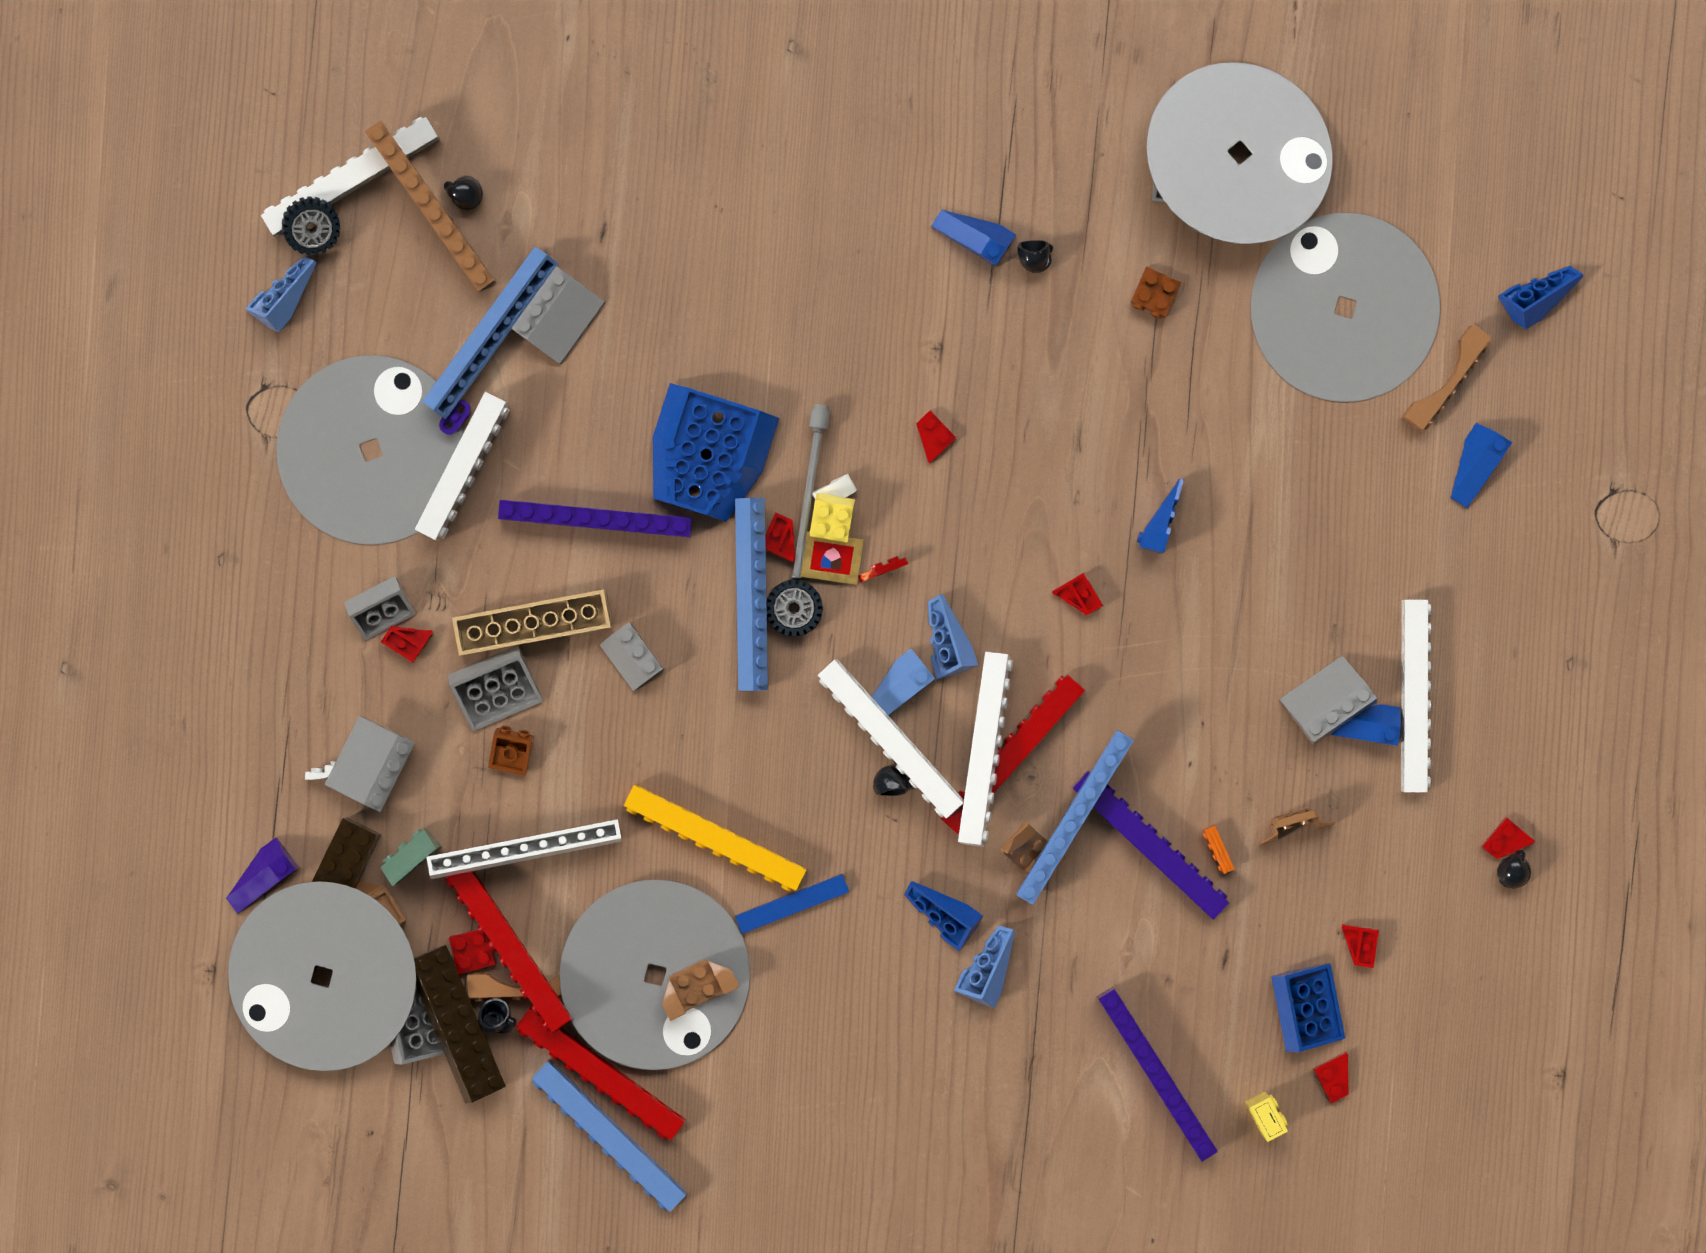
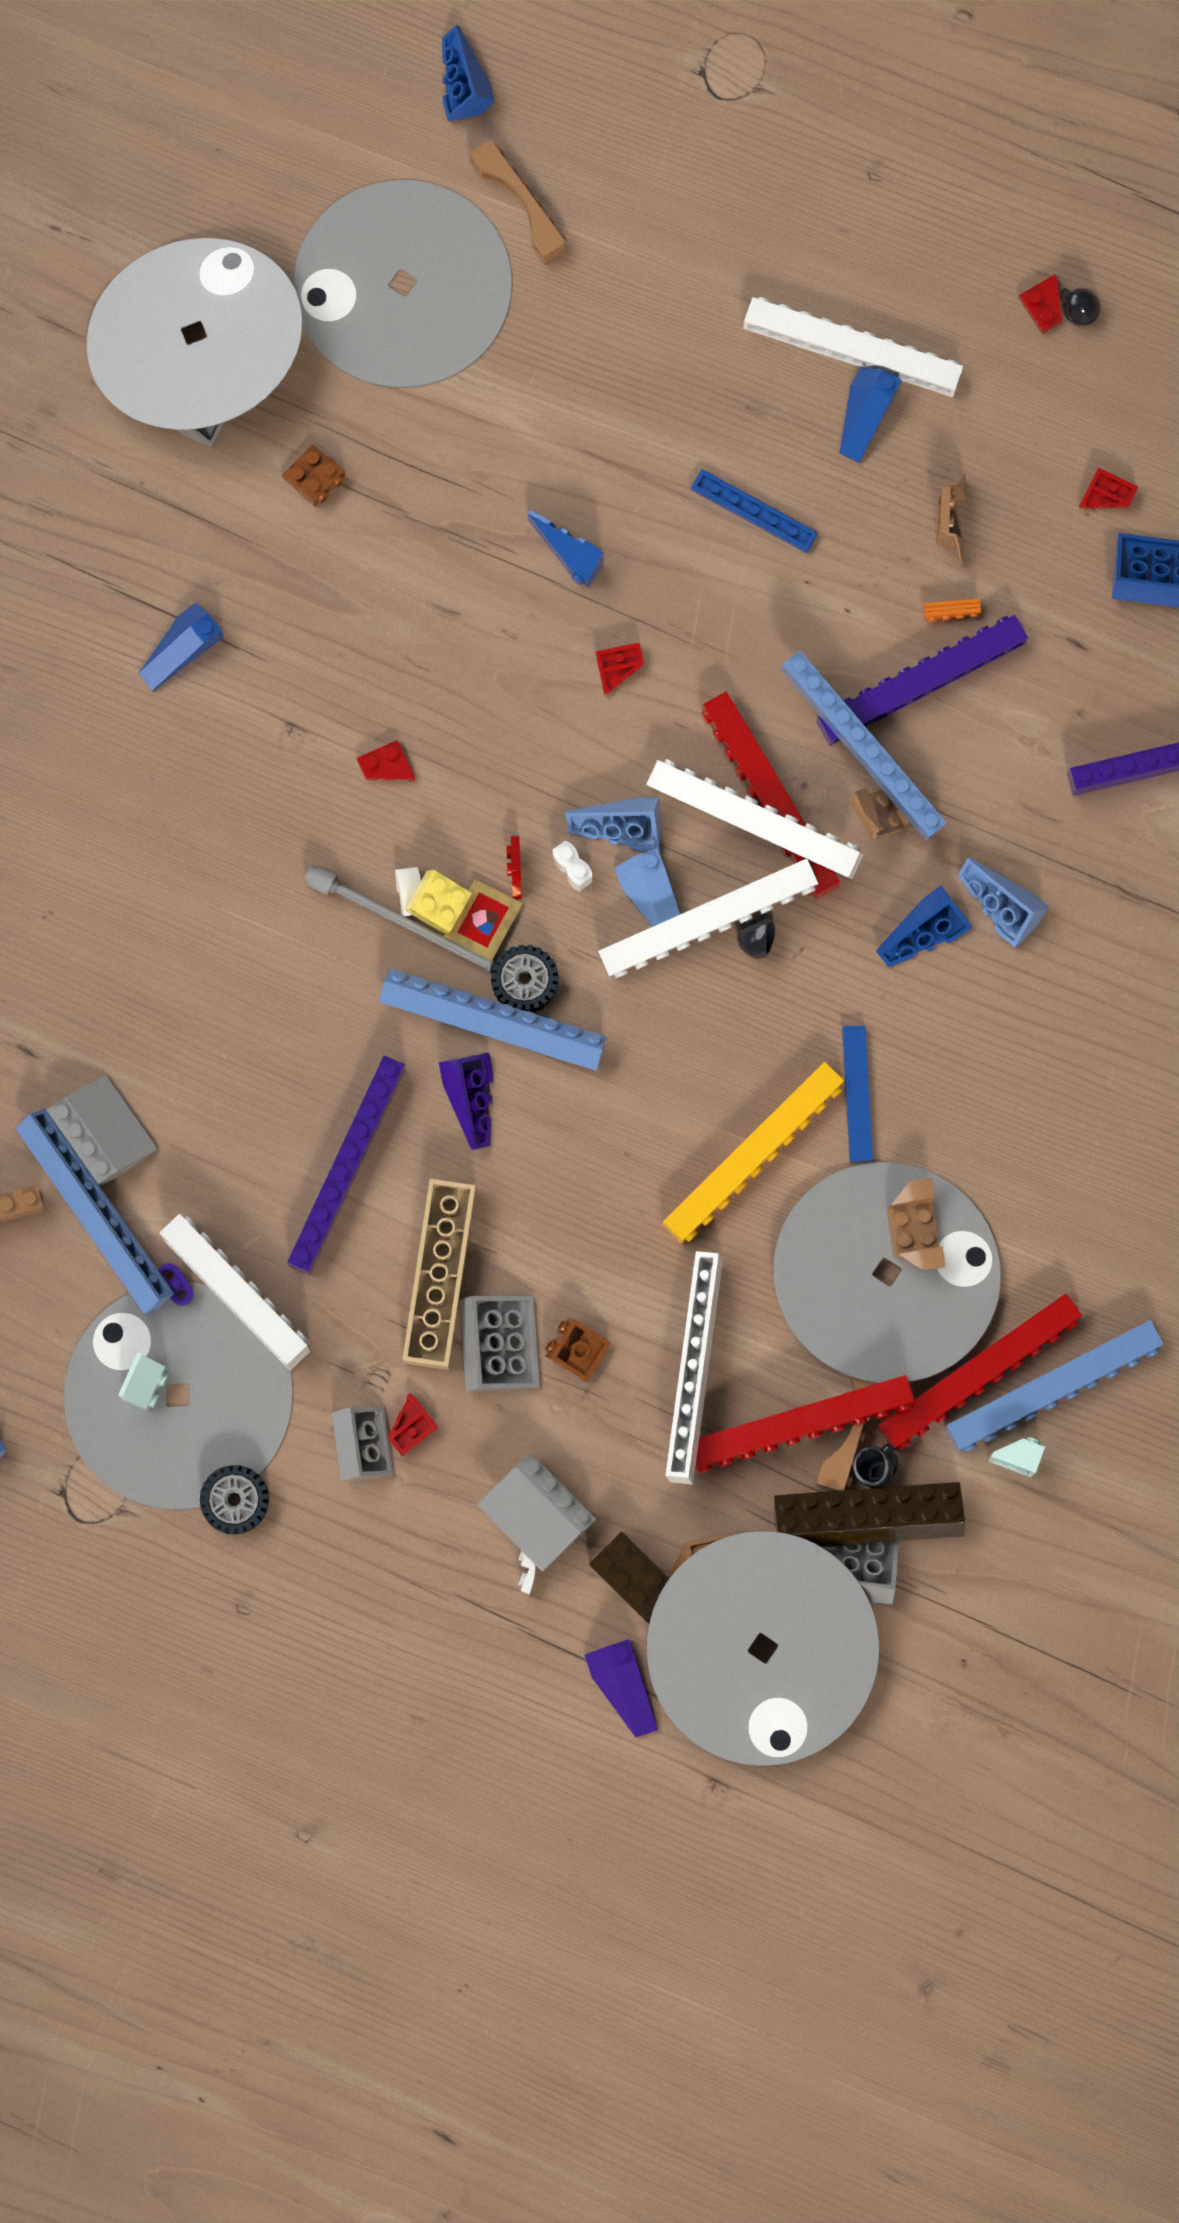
camera: 70 degrees left, 10 degrees down
(317, 523) = (247, 1513): none -> wheel
(367, 420) = (143, 1382): none -> light aqua slope
(409, 856) = (658, 1504): sand green slope -> none
(471, 951) = (790, 1471): red plate -> none
(542, 1126) = (1019, 1456): none -> light aqua slope
(631, 656) = (516, 1177): light grey slope -> none
(689, 593) = (467, 1088): none -> dark purple wedge
(736, 444) = (282, 1028): blue wedge -> none
(780, 537) = (440, 967): red wing -> none
(895, 620) = (576, 870): none -> white brick
(1035, 255) = (226, 588): black piece -> none
(1247, 661) = (754, 511): none -> blue tile
(1328, 700) = (826, 437): light grey slope -> none
(1479, 458) = (617, 195): blue wedge -> none

